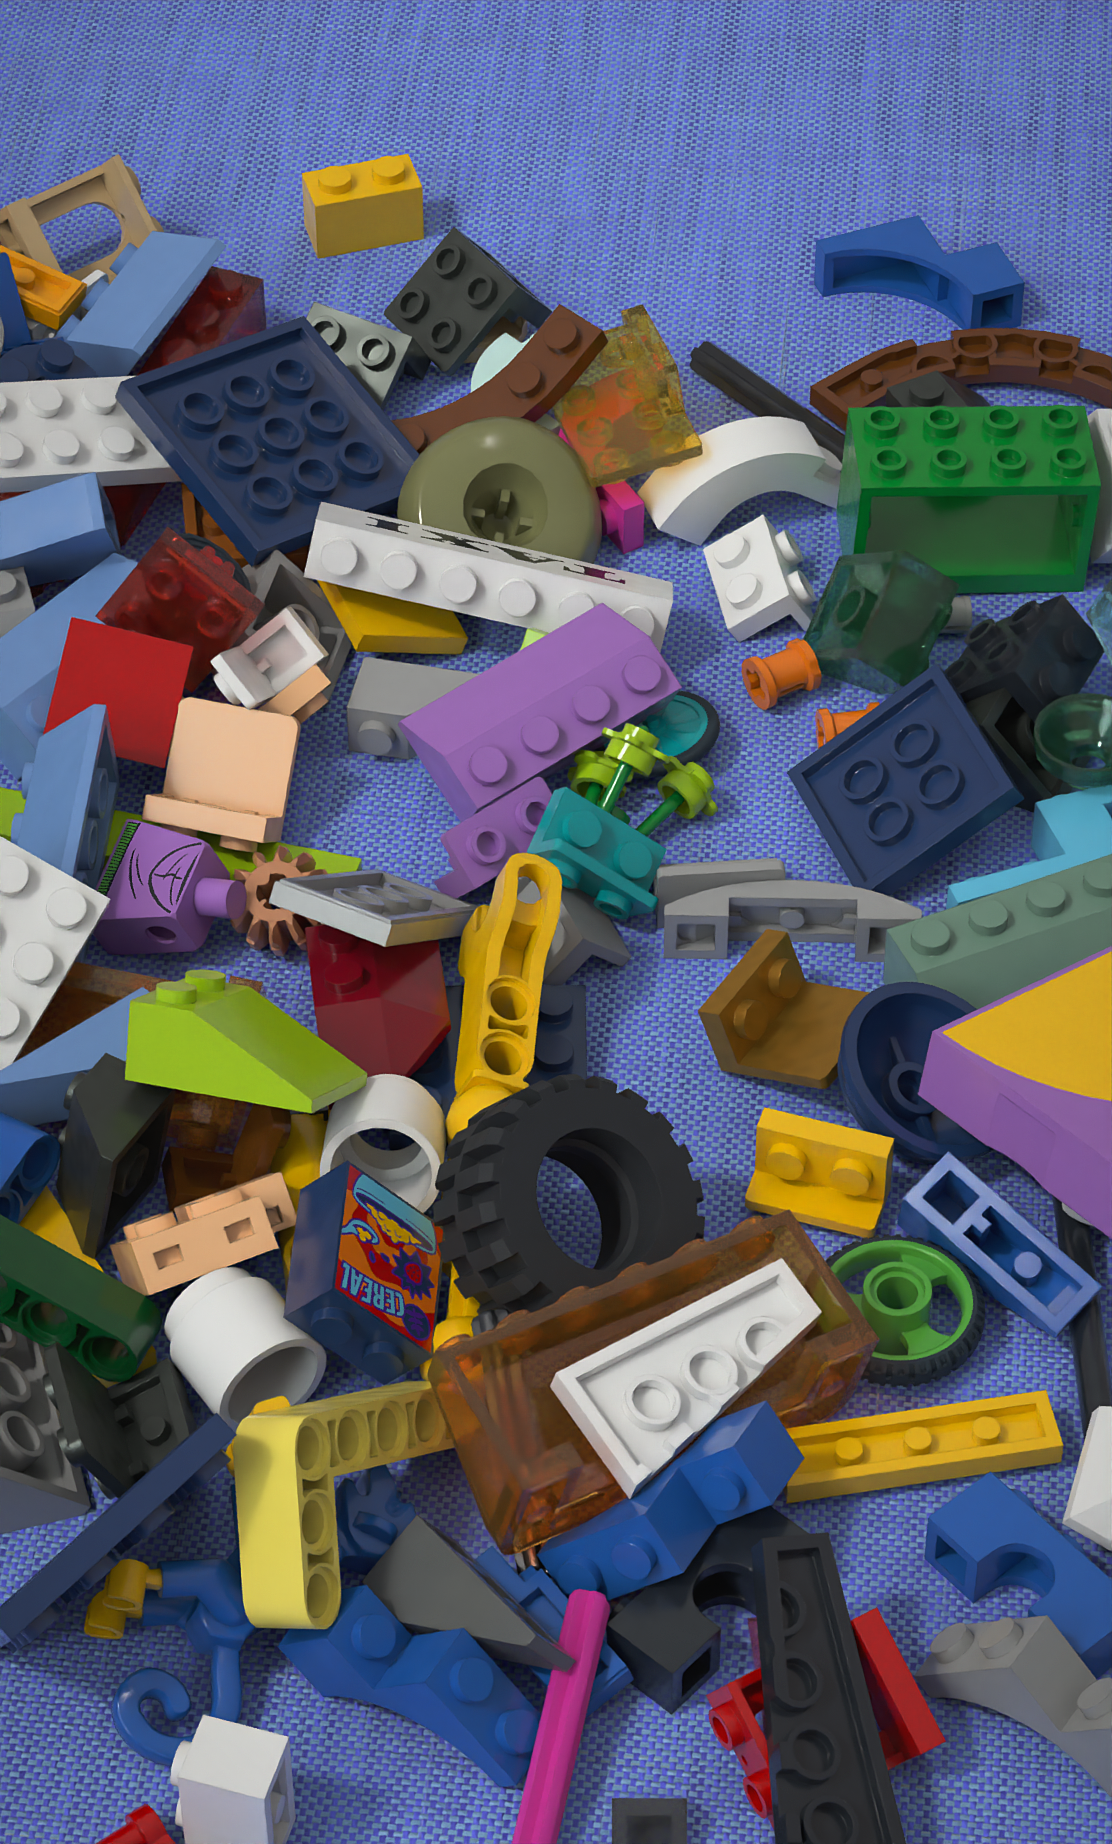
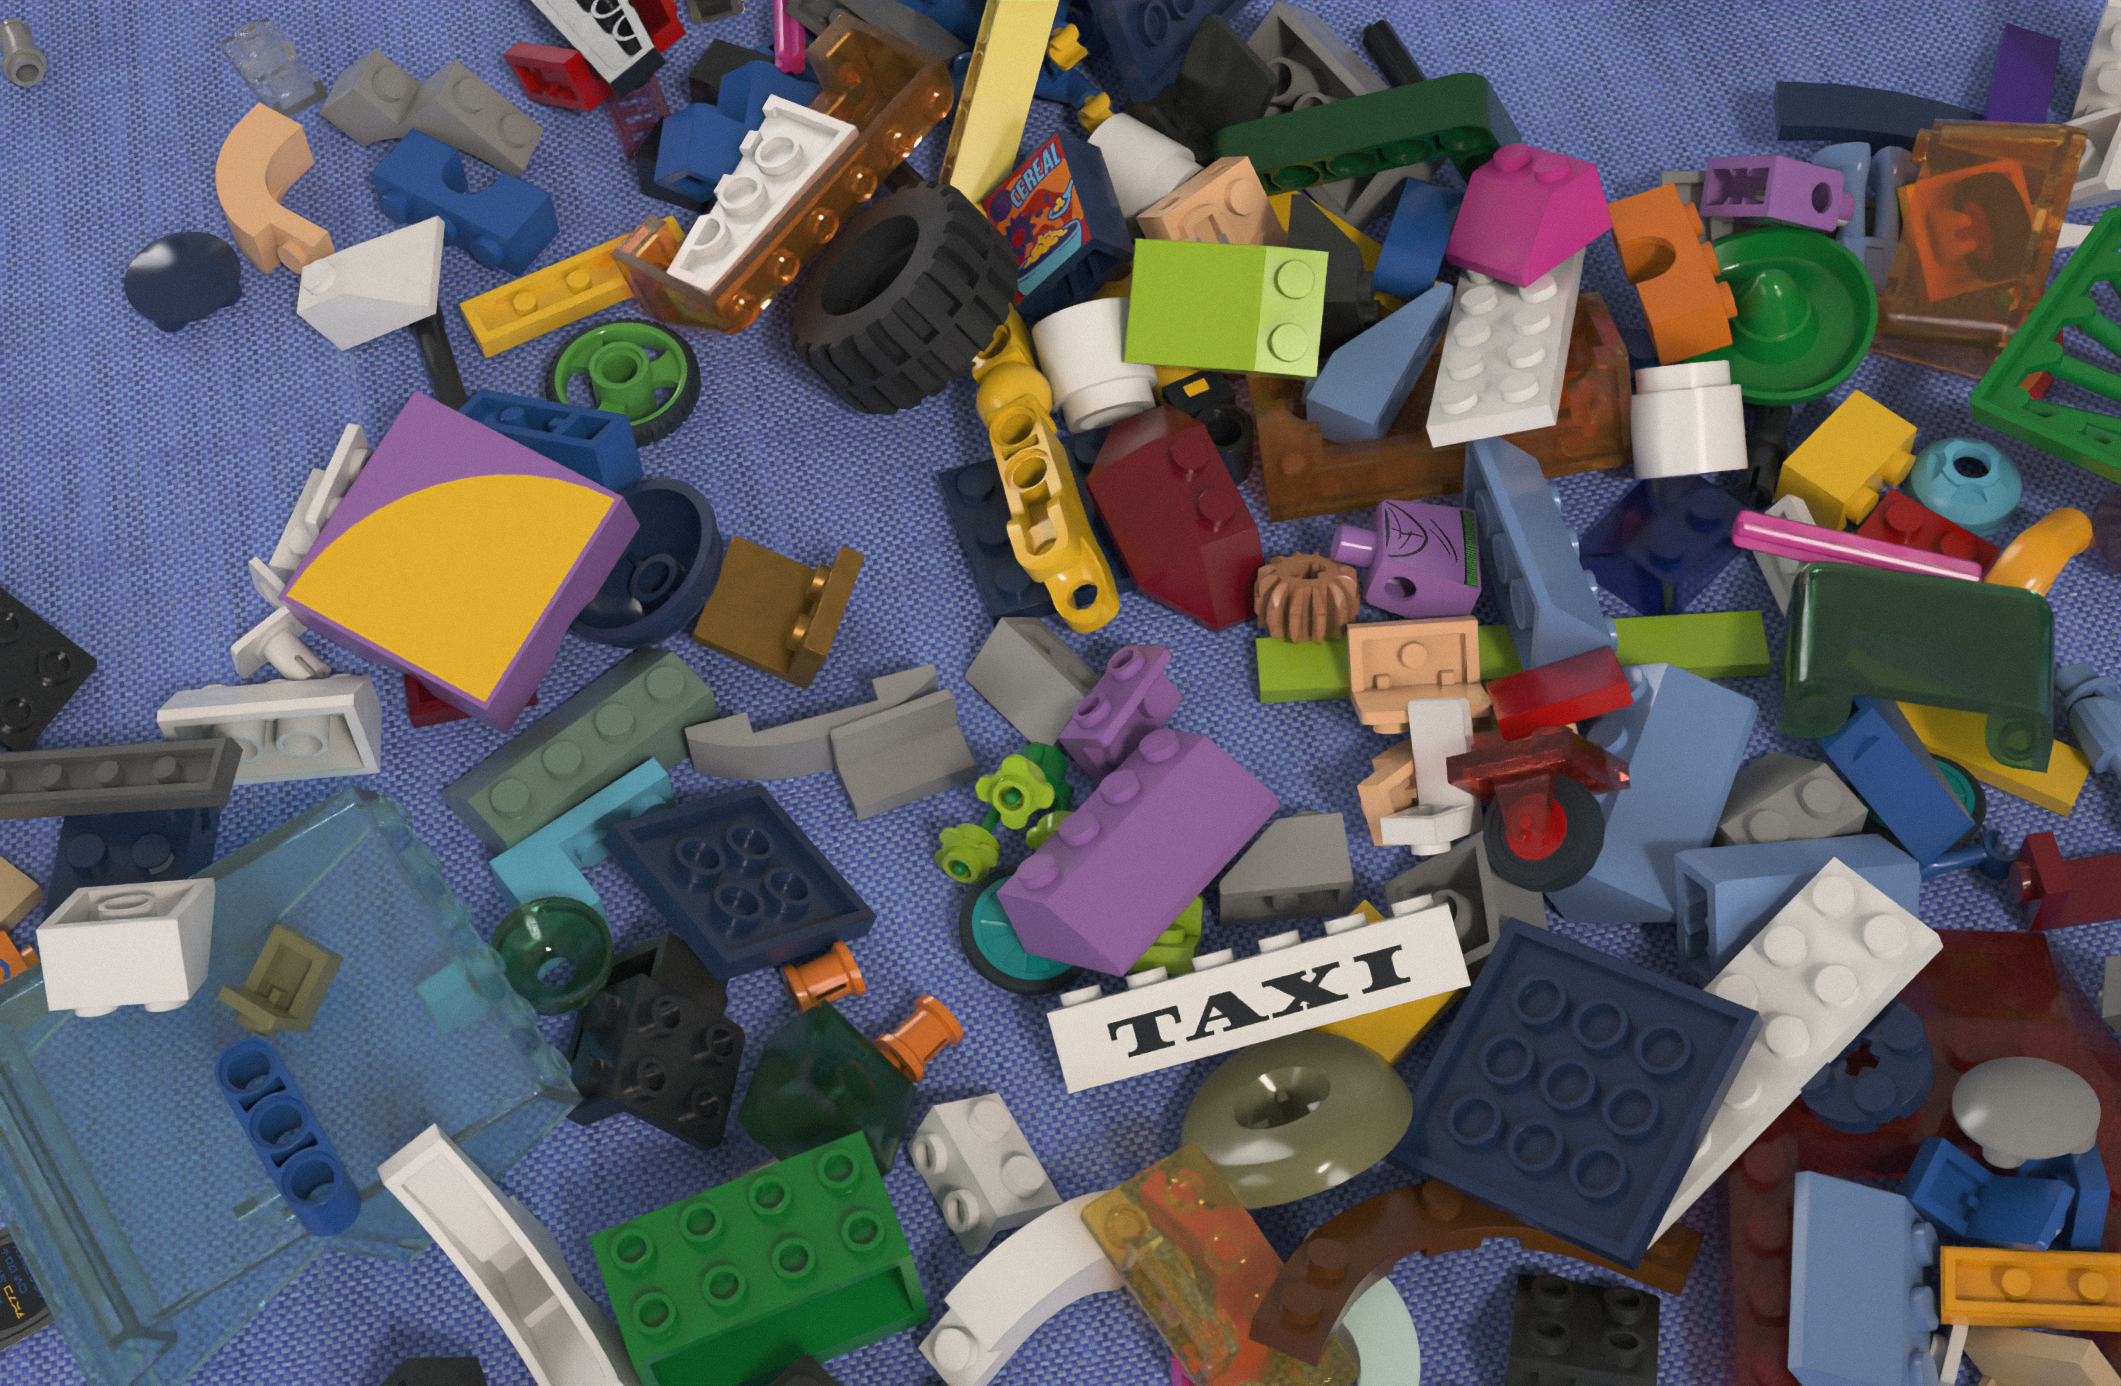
camera: 165 degrees right, 10 degrees up
(374, 906) = (1197, 551): light grey tile -> none
(598, 854) = (1018, 701): teal bracket -> none
(820, 1173) = (724, 474): yellow bracket -> none

